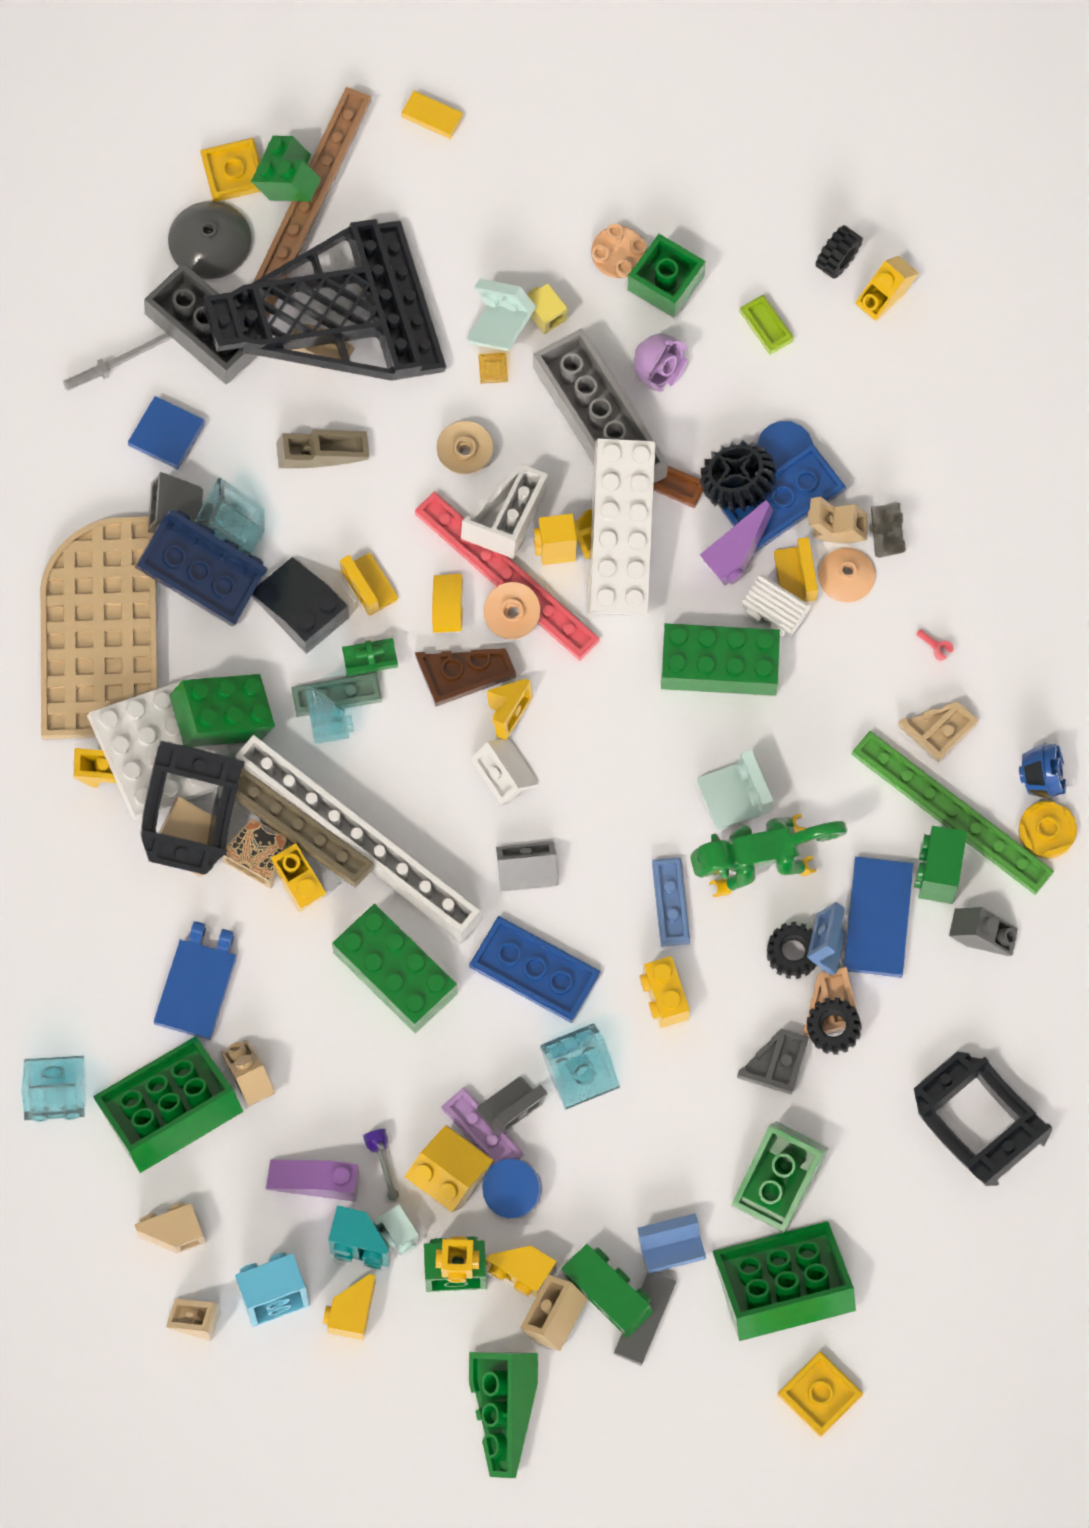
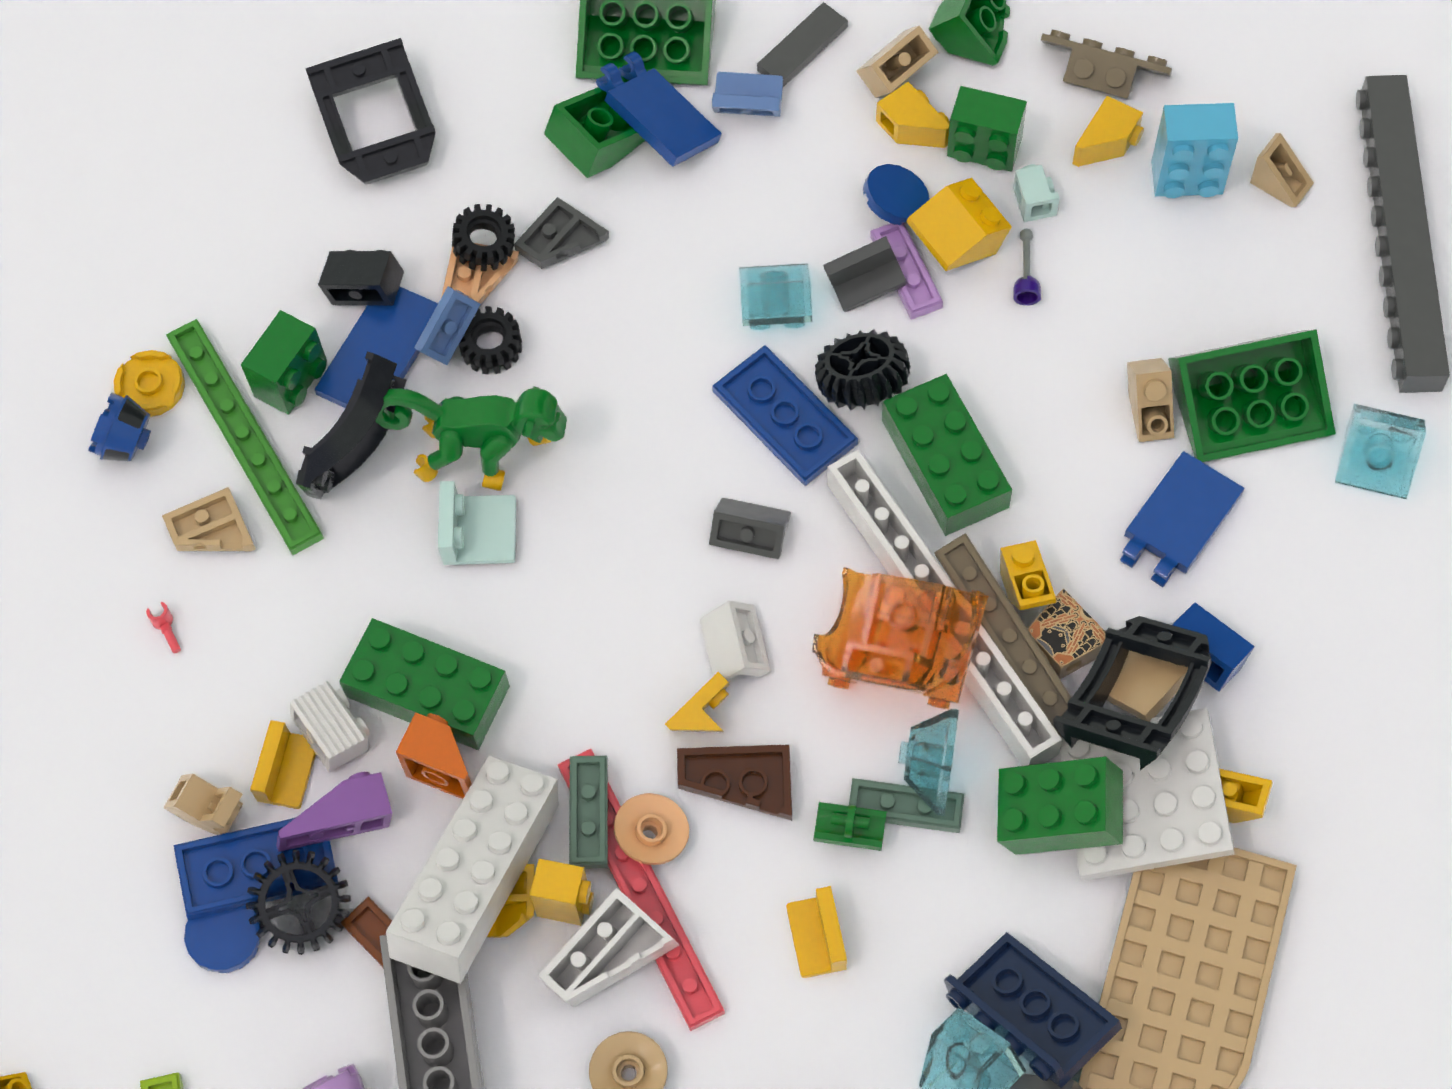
camera: 155 degrees left, 5 degrees down
(80, 1297) = (1402, 235): none -> dark grey brick
(147, 878) = (1226, 647): none -> blue brick
(172, 1230) = (1283, 263): tan slope -> none
(301, 604) = (913, 932): black slope -> none
(314, 1178) = (1107, 268): medium lavender slope -> none
(357, 1238) = (1083, 184): teal slope -> none
(376, 1380) = (1102, 69): none -> dark tan bracket
(378, 789) = (902, 636): none -> clear orange piece
(447, 603) = (727, 868): yellow slope -> none
(454, 1248) = (988, 90): yellow brick -> none
(483, 1000) = (862, 369): none -> black gear
(561, 608) = (588, 811): none -> sand green tile
(608, 1289) = (832, 67): green brick -> none
(666, 992) = (649, 335): yellow brick -> none
(670, 902) = (602, 438): medium blue tile -> none
(681, 599) = (432, 756): none -> orange slope
(739, 1197) = (657, 110): none -> blue tile
(842, 586) = (235, 761): light nougat dish -> none
(852, 810) = (355, 432): none -> black wedge
(887, 529) = (150, 770): clear smoke hips -> none
(917, 961) = (361, 277): none -> black brick
(983, 930) = (275, 291): dark grey slope -> none

